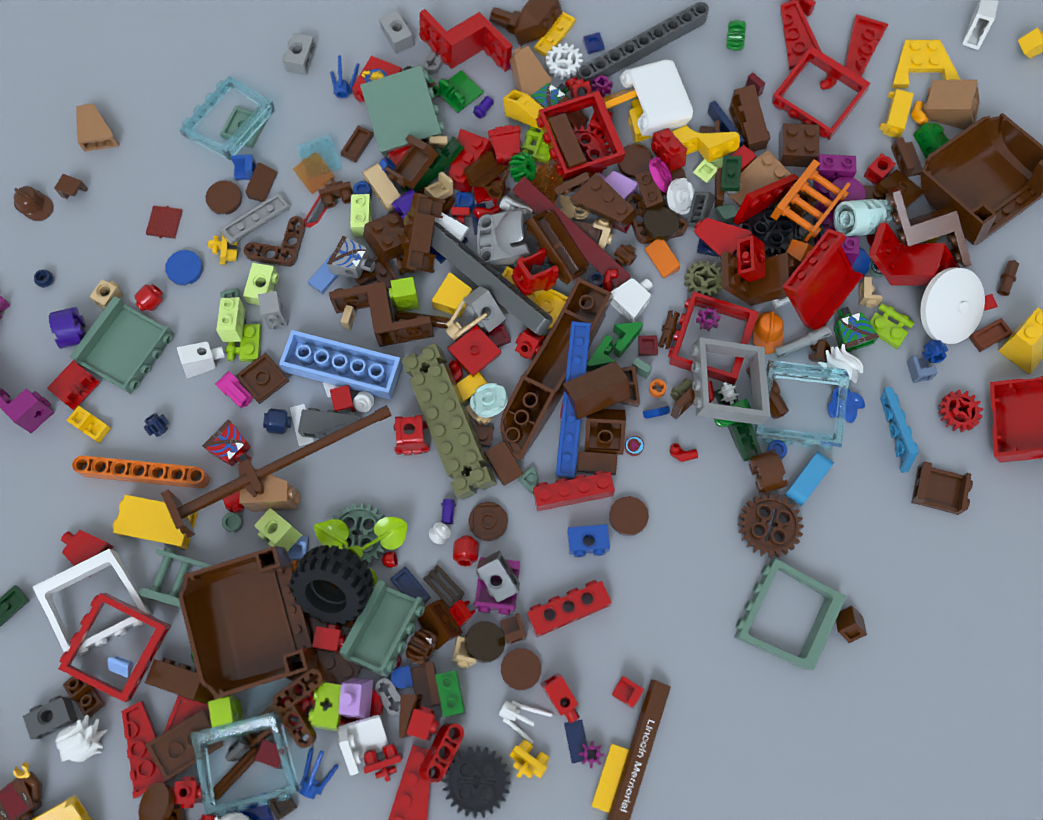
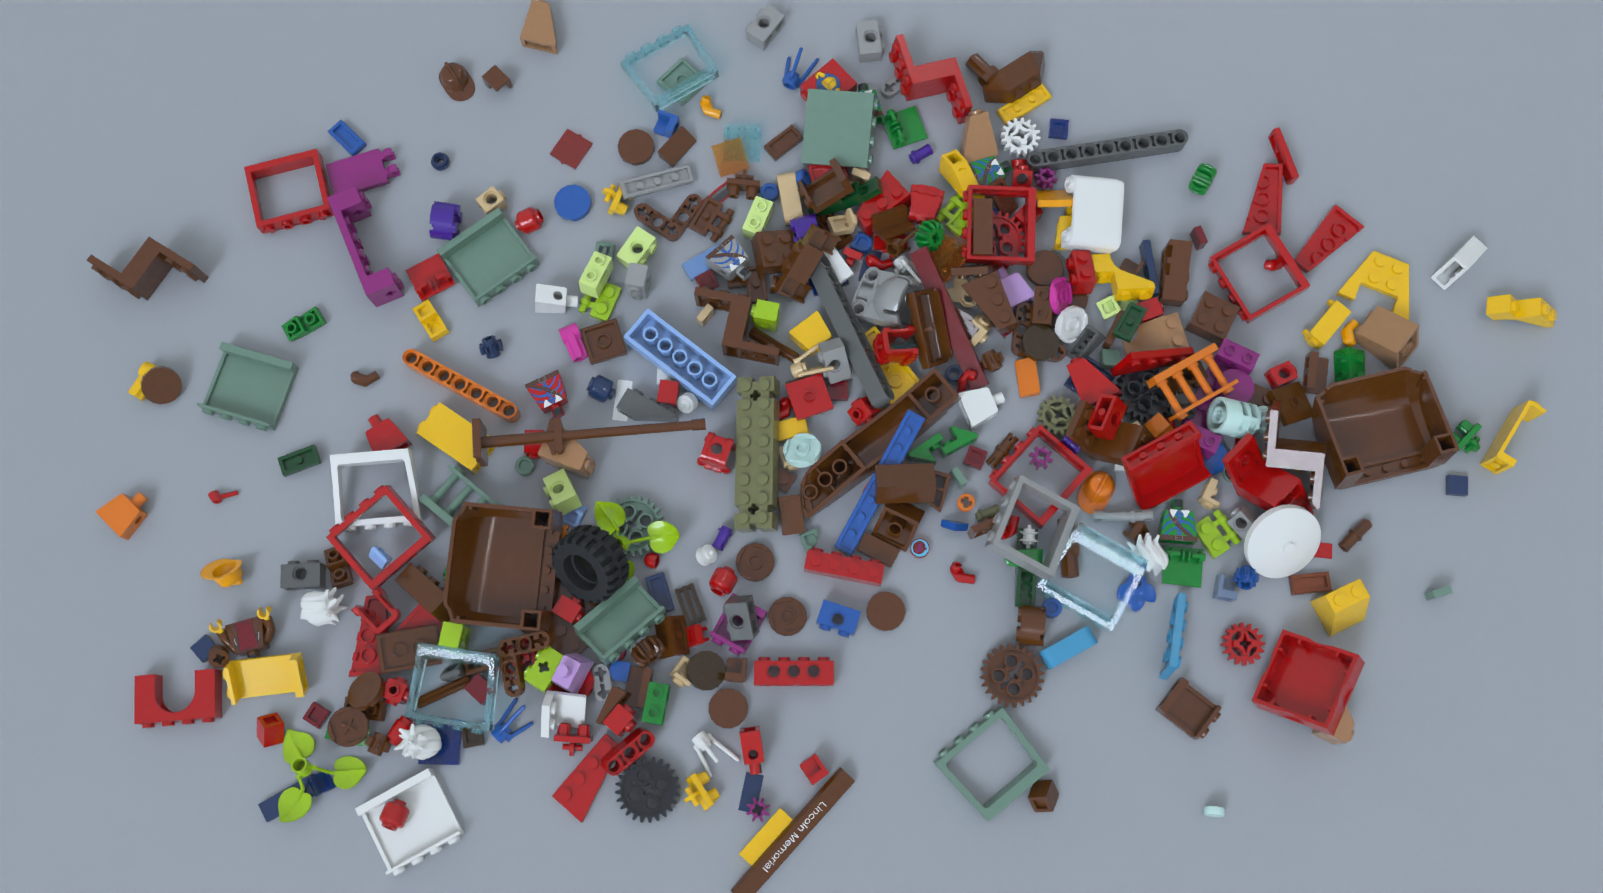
camera: 20 degrees right, 5 degrees up
(43, 505) = (364, 380): none -> reddish brown arm
(135, 702) = (380, 594): none -> red piece
(276, 141) = (707, 108): none -> light orange arm
(313, 231) = (707, 215): none -> reddish brown plate
(336, 283) = (707, 279): none -> dark red tile
(539, 559) = (787, 616): none -> reddish brown tile
(728, 297) = (1071, 445): none -> dark purple bush
(877, 365) = (1183, 566): none -> green hinge
(912, 311) = (1235, 522): none -> light grey brick
(1009, 571) = (1214, 811): none -> light aqua tile

